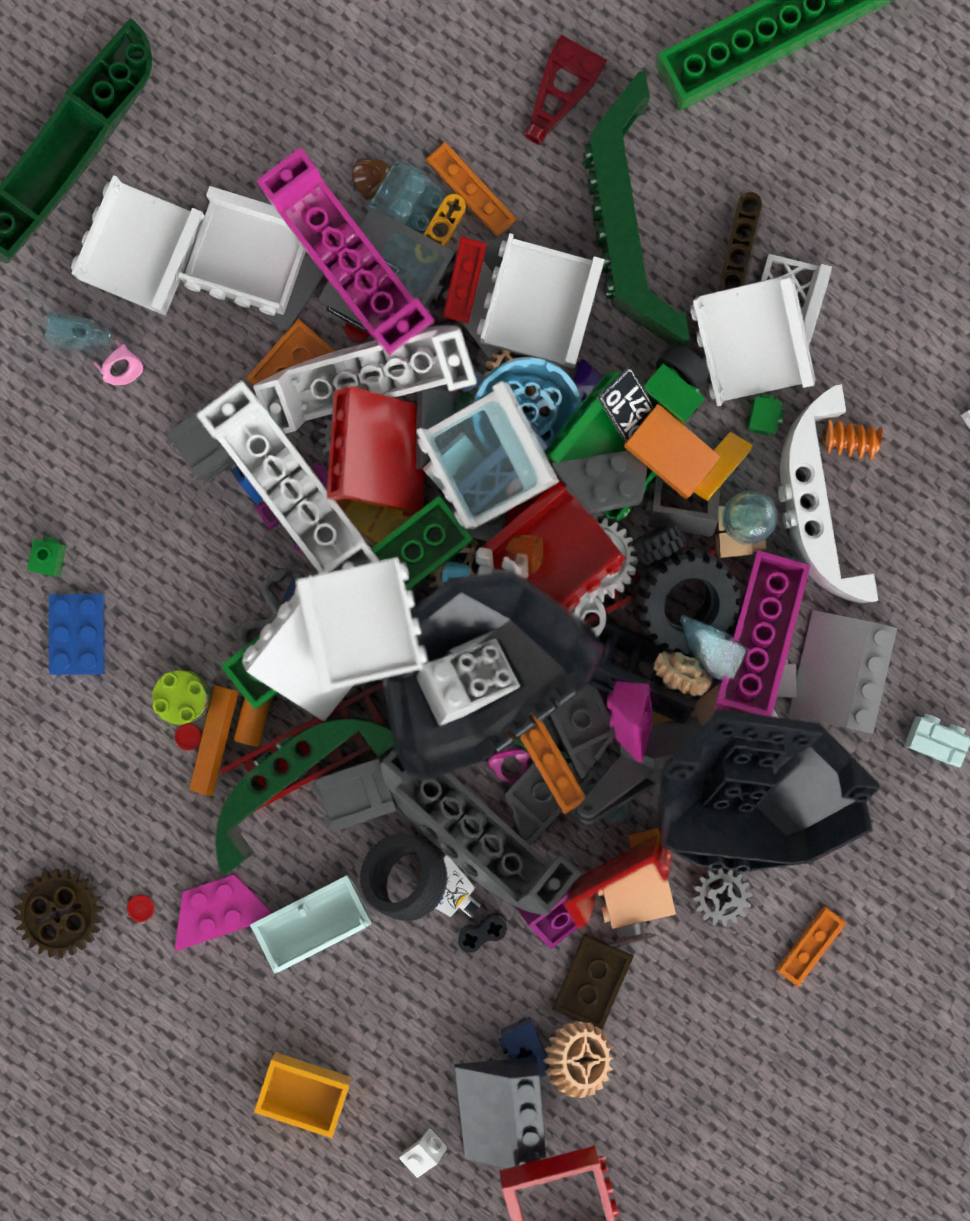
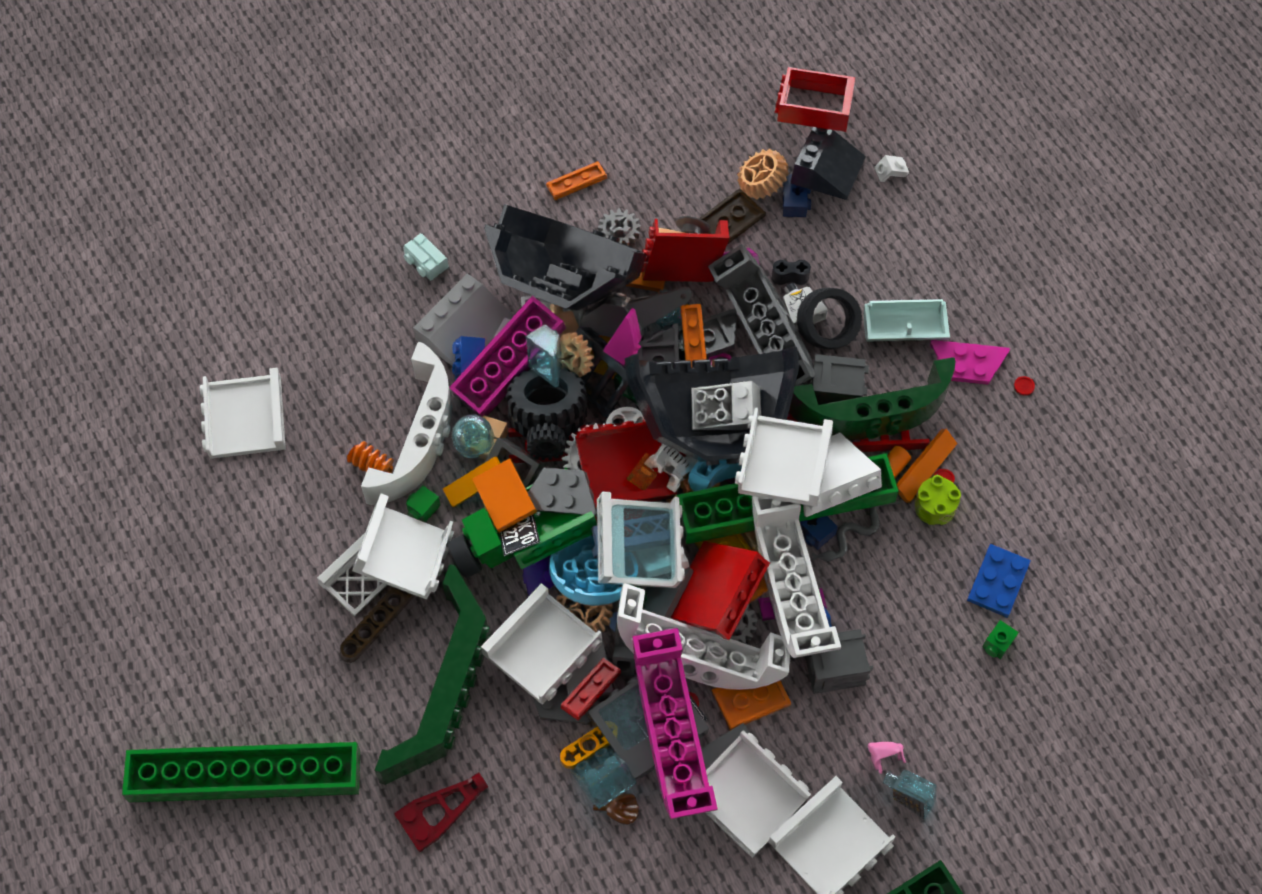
camera: 160 degrees left, 25 degrees down
(67, 935) = (1084, 403): dark brown gear -> none
(303, 1094) = (957, 227): light orange piece -> none
(471, 189) = (550, 765): orange tile -> none
(812, 627) = (466, 351): none -> blue slope

